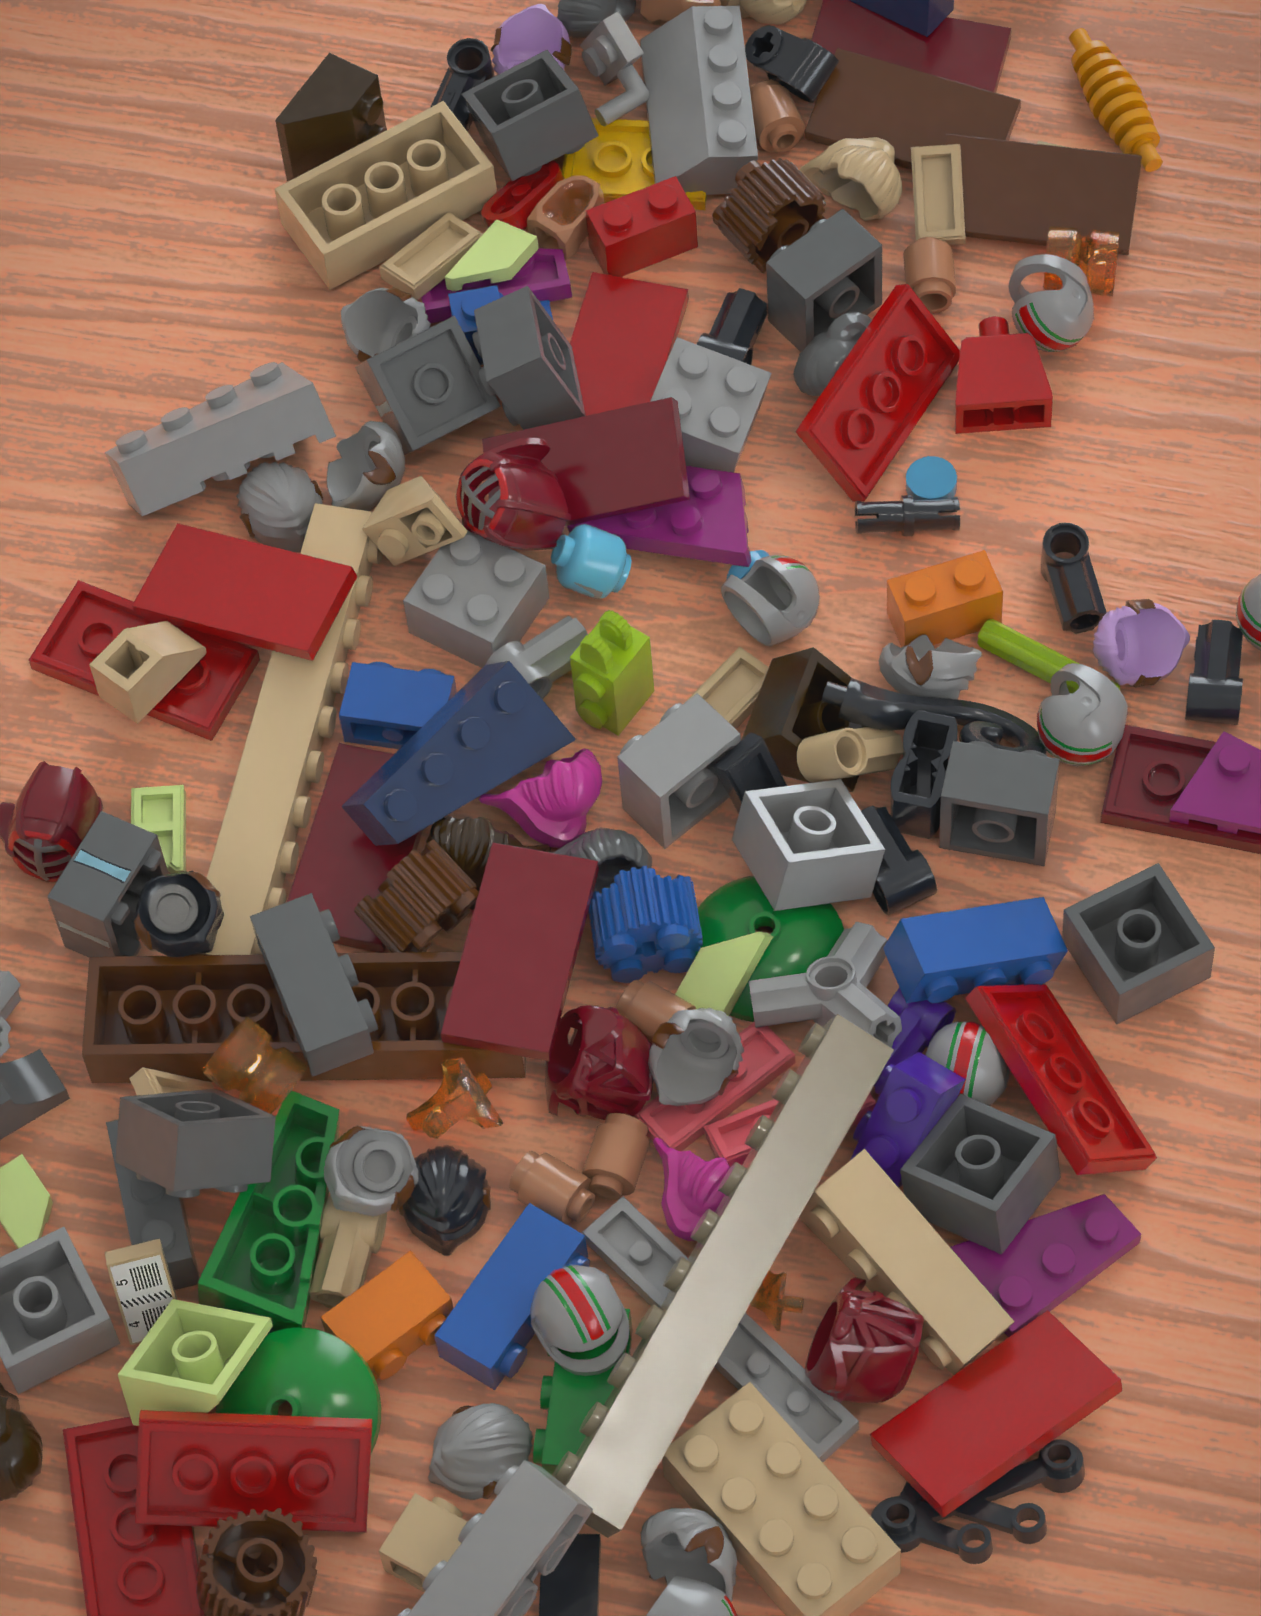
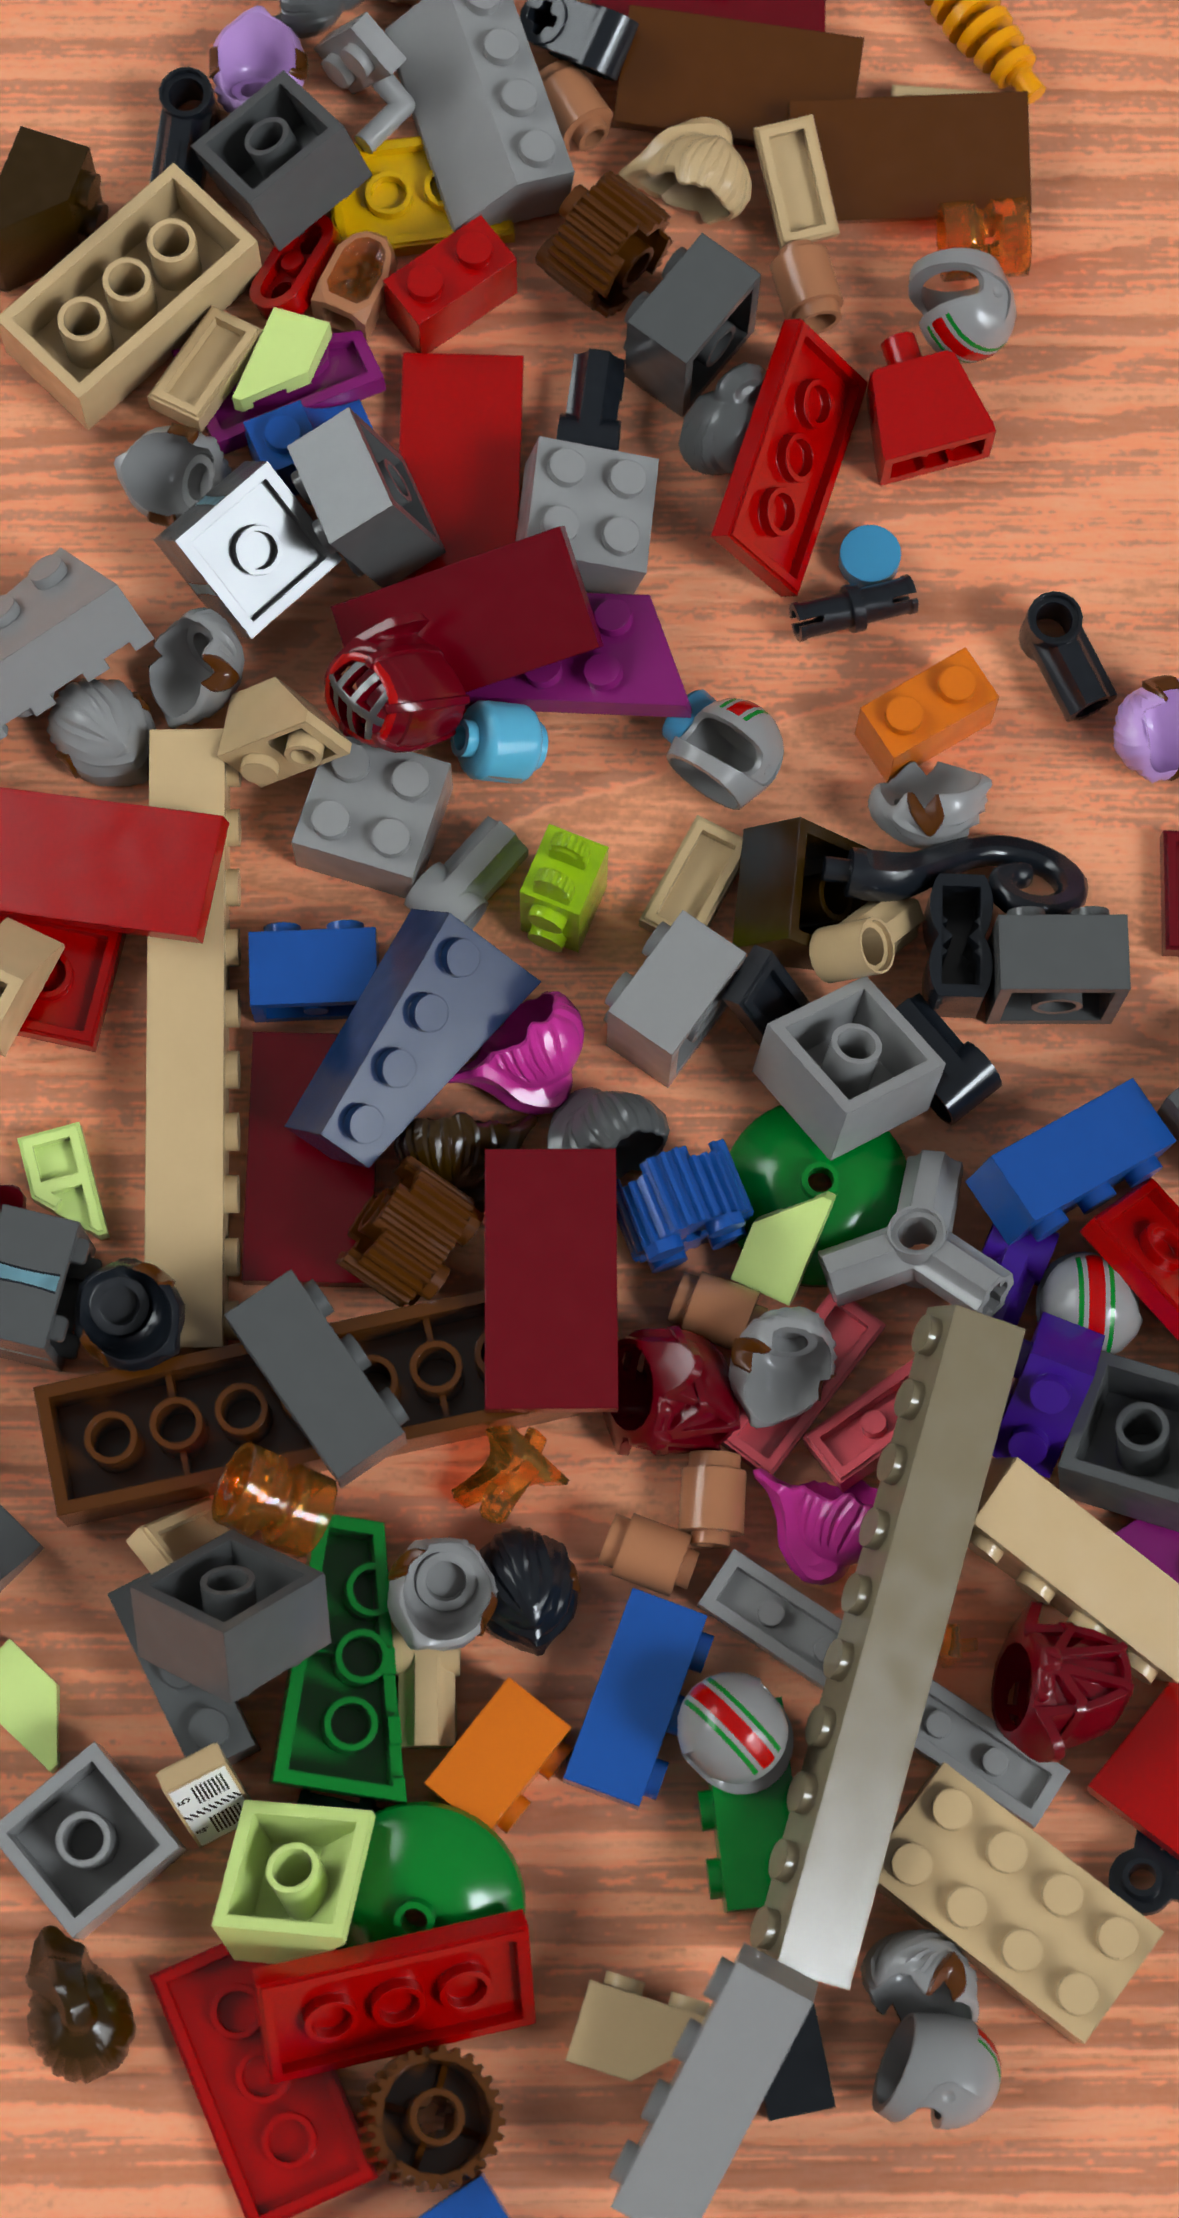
camera: 20 degrees left, 15 degrees up
(478, 1448) = (645, 1897): light grey hair -> none
(1024, 652) = (1060, 769): lime axle -> none
(1084, 724) = (1127, 852): light grey helmet -> none

